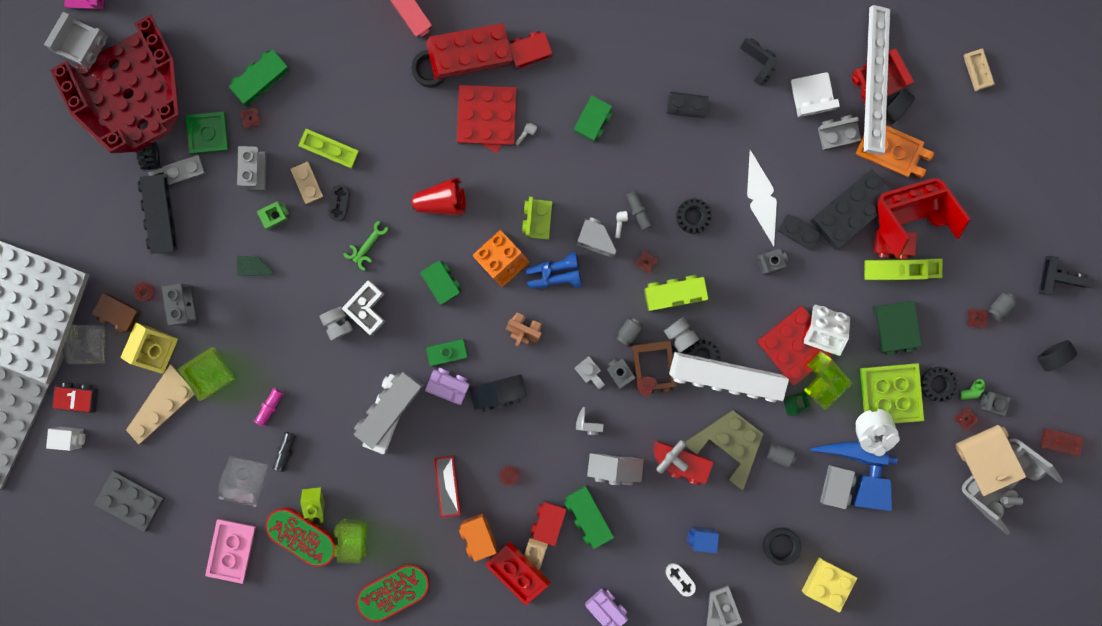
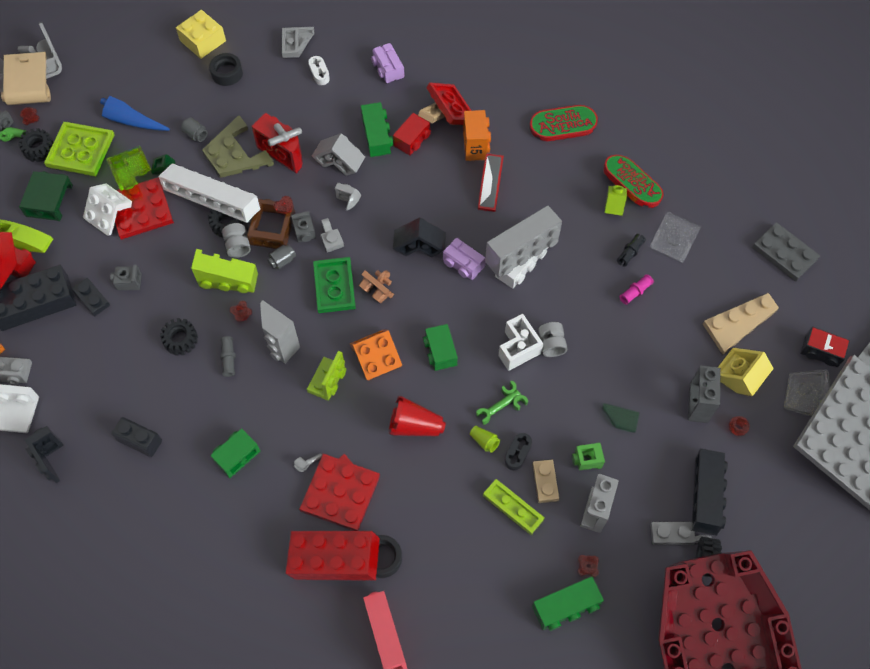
camera: 160 degrees left, 25 degrees down
(65, 438) = (840, 311): white brick -> none
(116, 312) = (770, 412): reddish brown brick -> none
(207, 132) = (638, 563): green plate -> none
(207, 374) = (689, 329): clear neon green brick -> none
(230, 551) = (699, 187): bright pink plate -> none
(351, 540) = (589, 161): clear neon green brick -> none
(372, 204) = (486, 439): none -> lime cone
(446, 352) = (455, 289): green plate -> none
(508, 475) = (433, 178): clear red plate -> none
(530, 49) = (268, 541): red brick -> none
(547, 268) = (336, 330): blue piece -> none
(566, 318) = (334, 285): none -> green plate
(621, 217) = (247, 357): white hand -> none
(703, 539) = (286, 84): blue brick -> none
(763, 203) = (109, 342): white sticker -> none
(838, 487) = (160, 96): light grey brick -> none
(873, 491) = (133, 85): blue torso -> none
(876, 432) = (105, 118): white brick -> none

